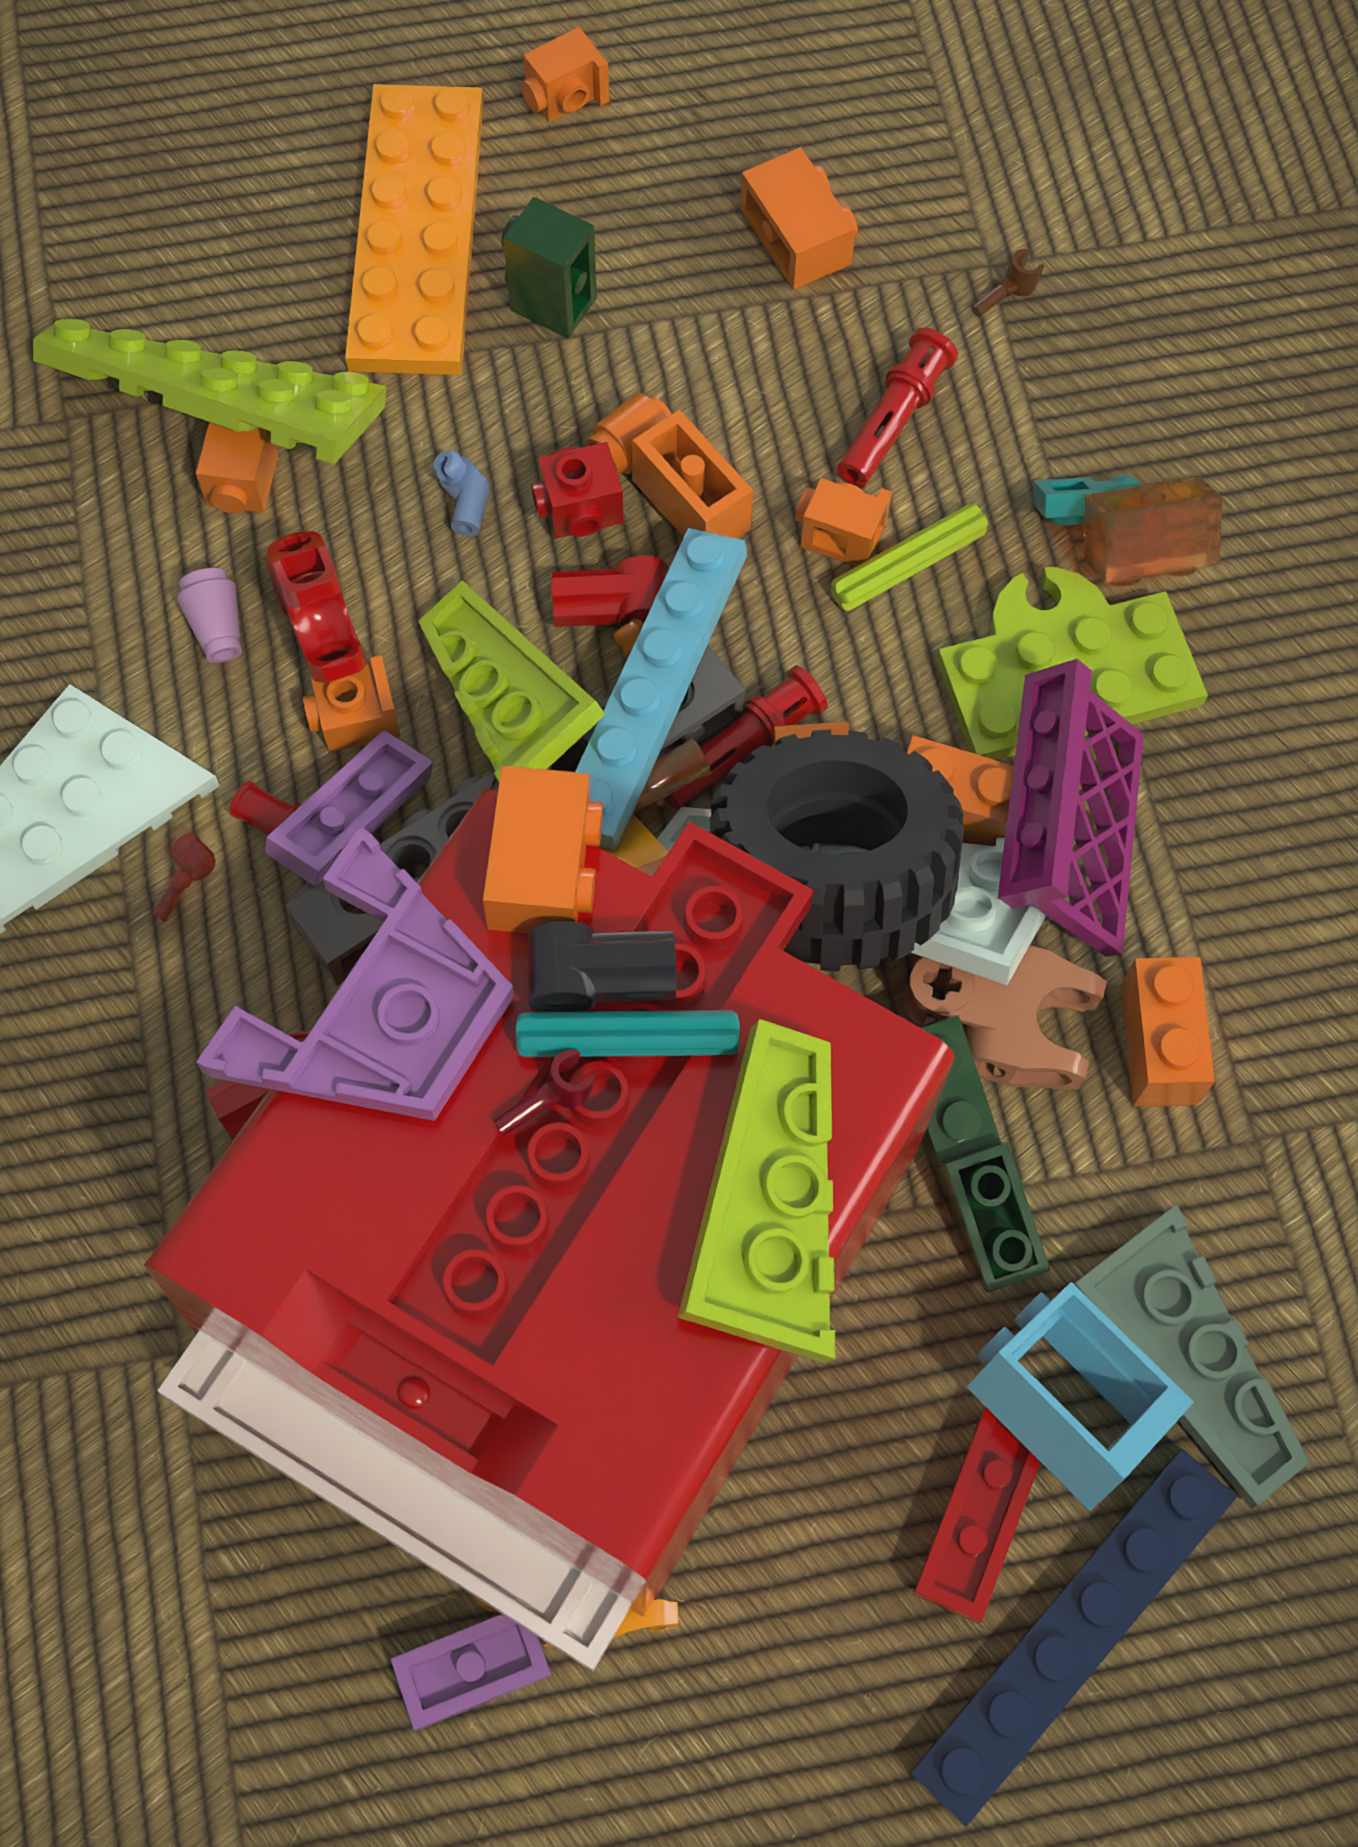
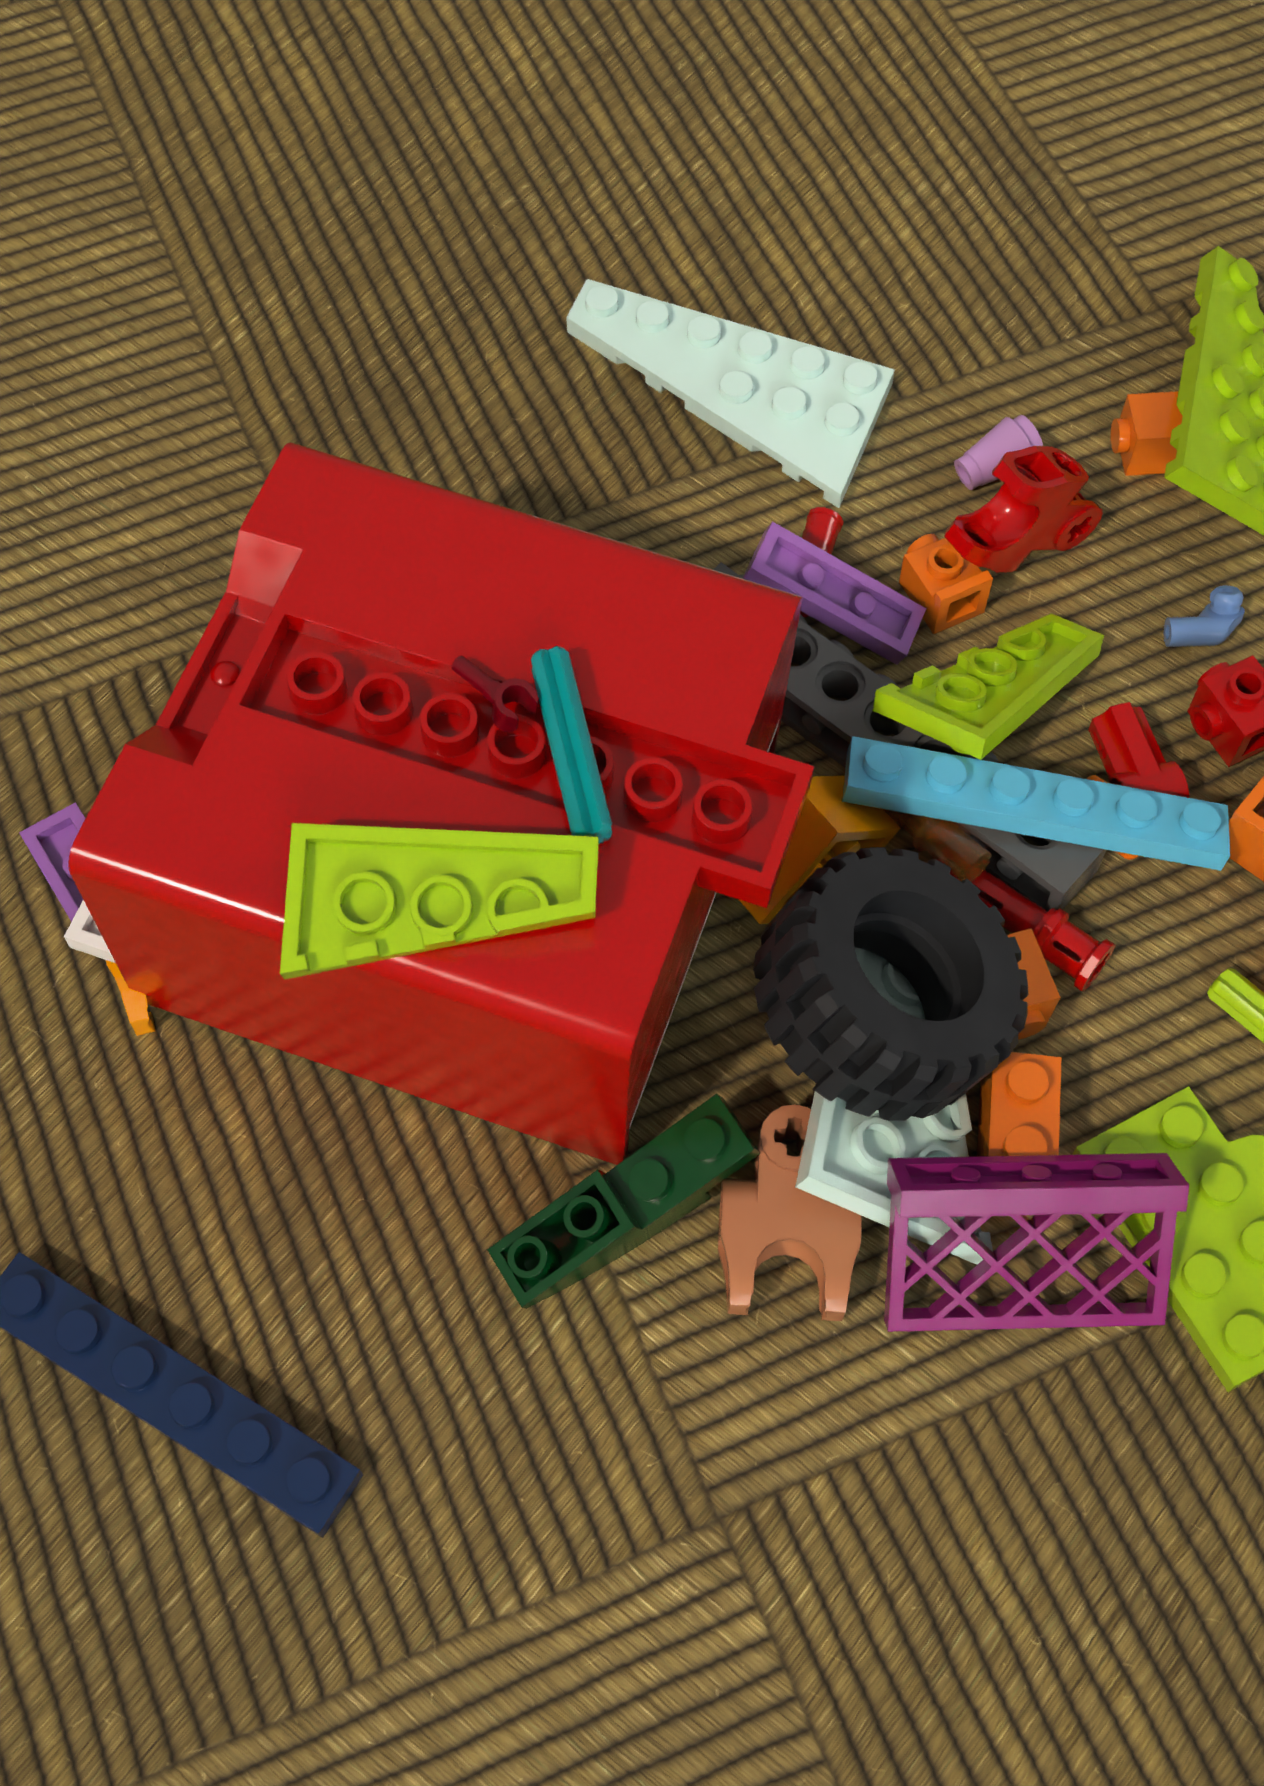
camera: 80 degrees right, 5 degrees down
(195, 863) = (755, 504): clear red hand -> none
(399, 1021) = (547, 561): medium lavender wing -> none
(540, 849) = (732, 630): orange brick -> none
(577, 968) = (625, 690): black piece -> none
(978, 1521) = (272, 1280): red plate -> none
(1108, 1363) = (459, 1293): medium azure window -> none
(1167, 1032) = (807, 1386): orange brick -> none
(1171, 1310) = (471, 1459): sand green wing -> none

